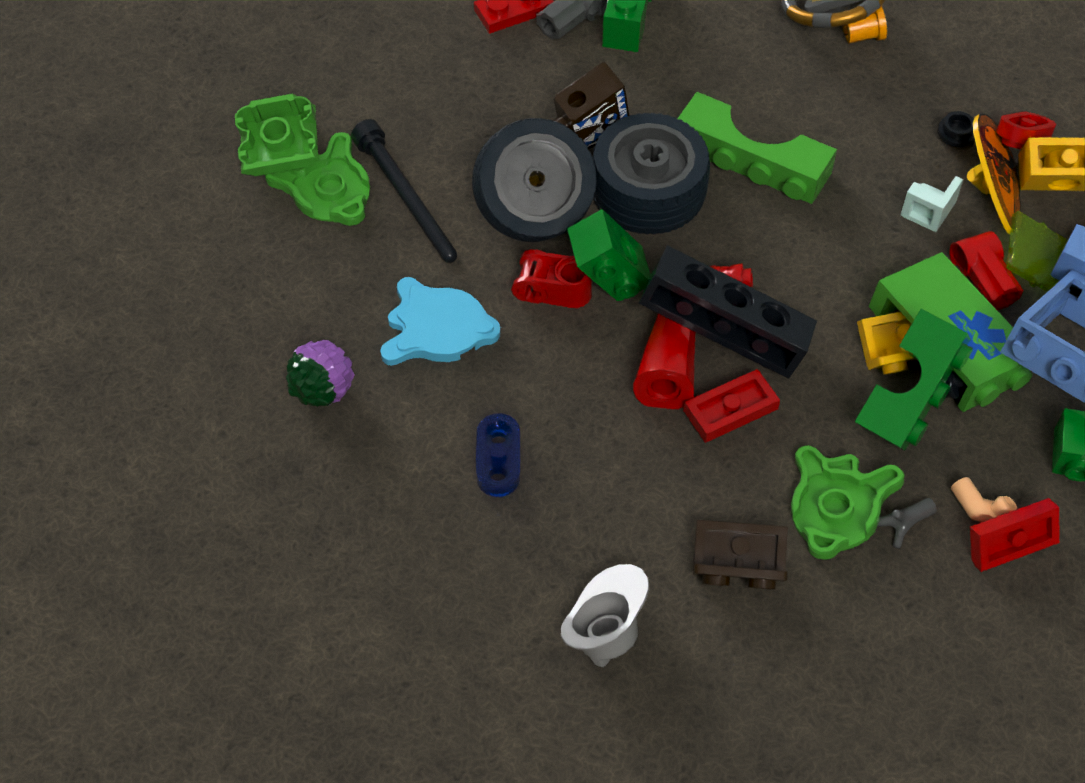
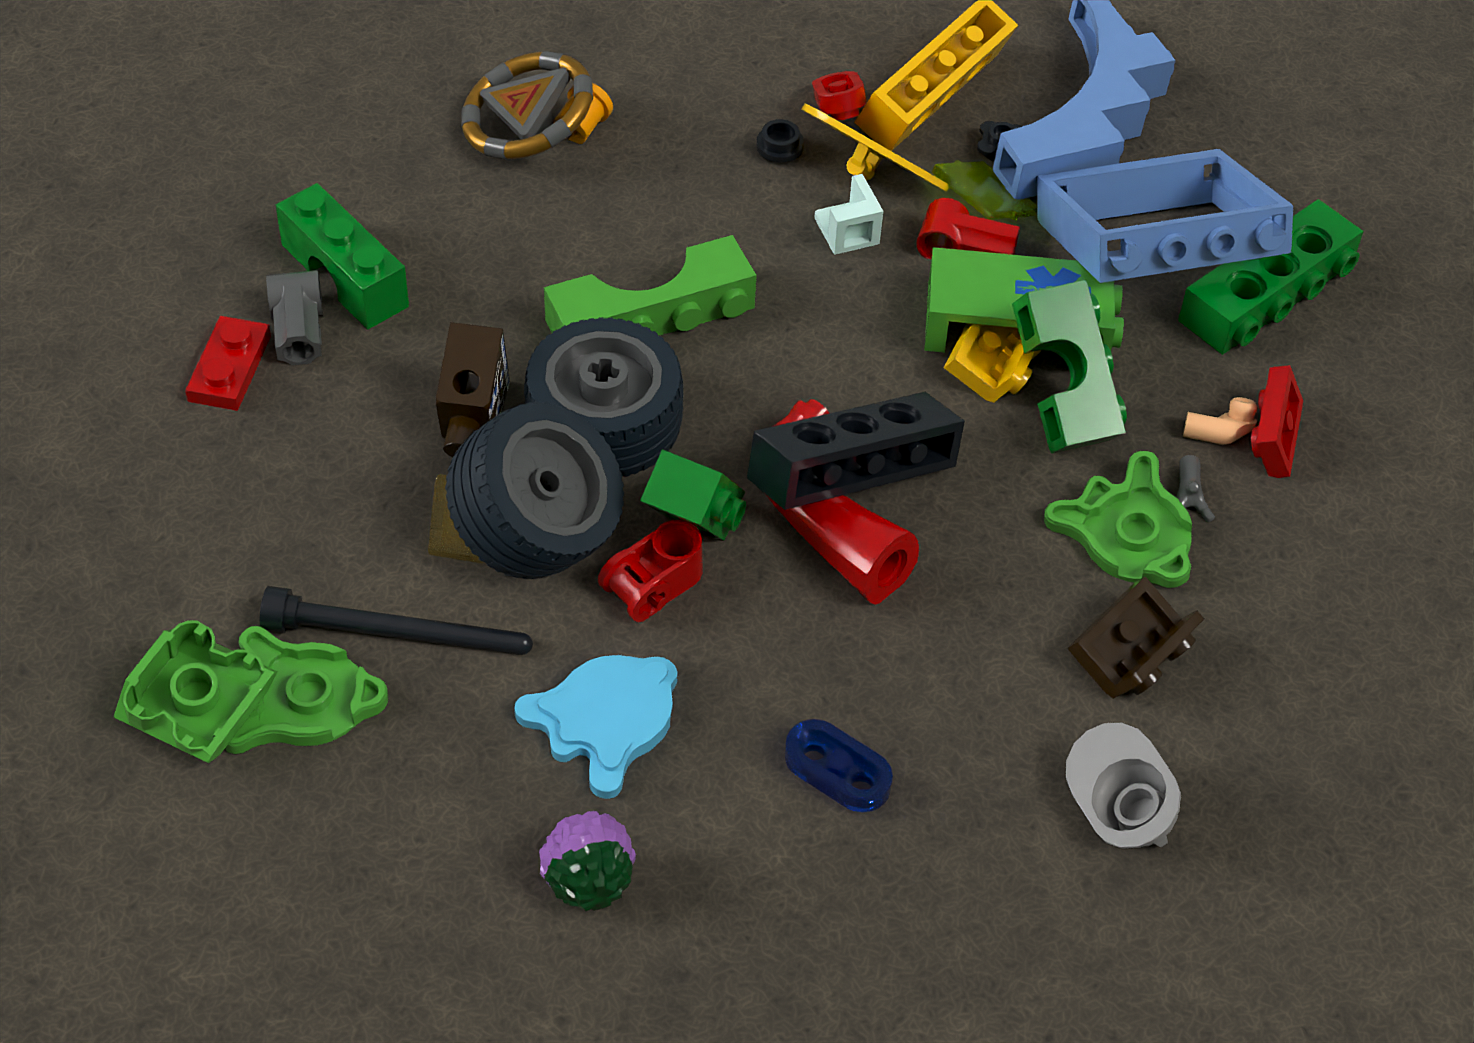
camera: 55 degrees left, 5 degrees down
(731, 405) = (950, 531): red plate -> none

